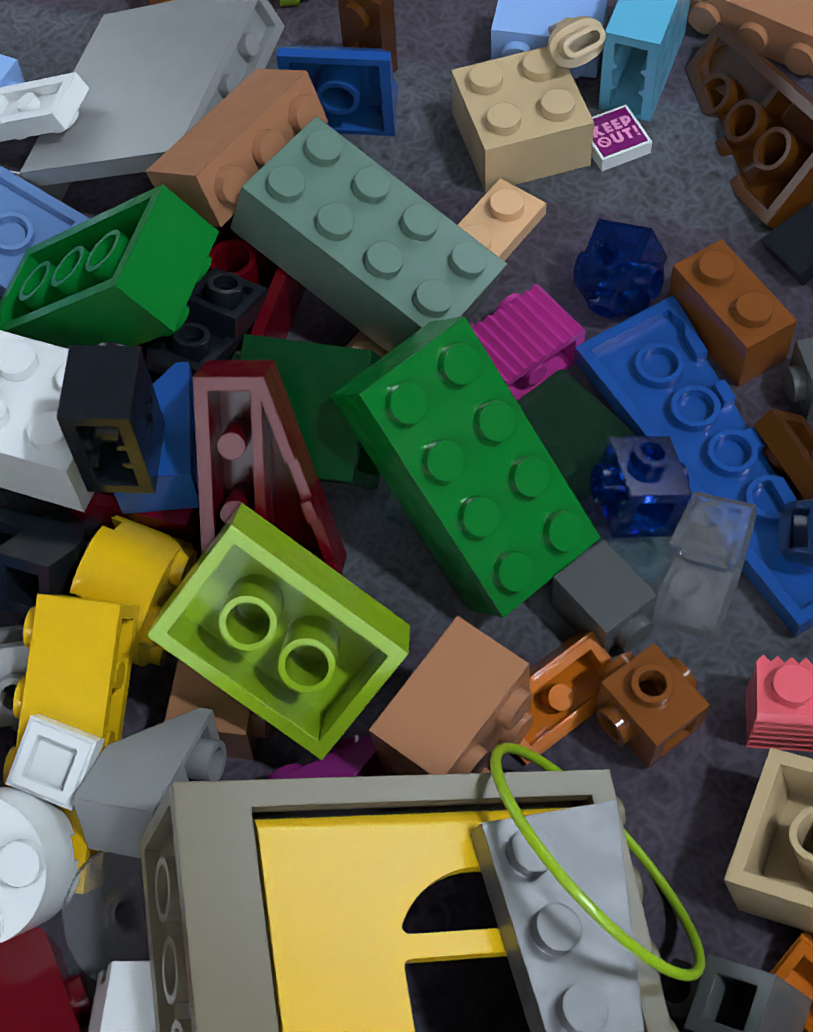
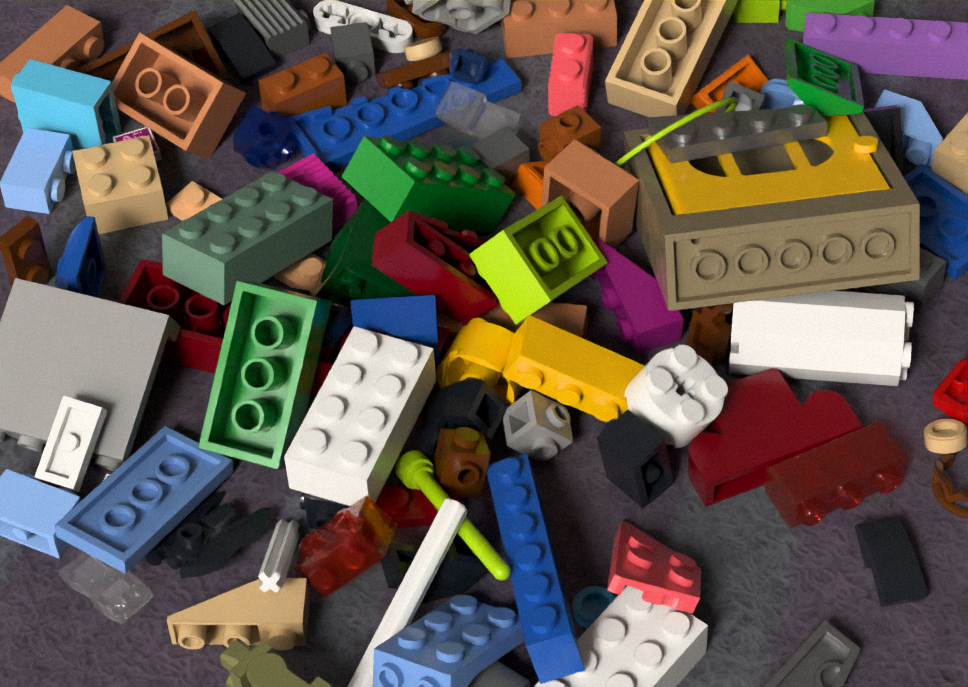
camera: 90 degrees left, 10 degrees down
(53, 760) = (614, 366): white tile -> none
(111, 418) = (416, 297): black brick -> none
(135, 774) = (627, 330): light grey slope -> none
(237, 141) = (167, 285): nougat brick -> none
(575, 41) = (83, 132): tan piece -> none
(641, 486) = (429, 125): clear blue brick -> none
(683, 144) = (175, 96): none -> nougat brick

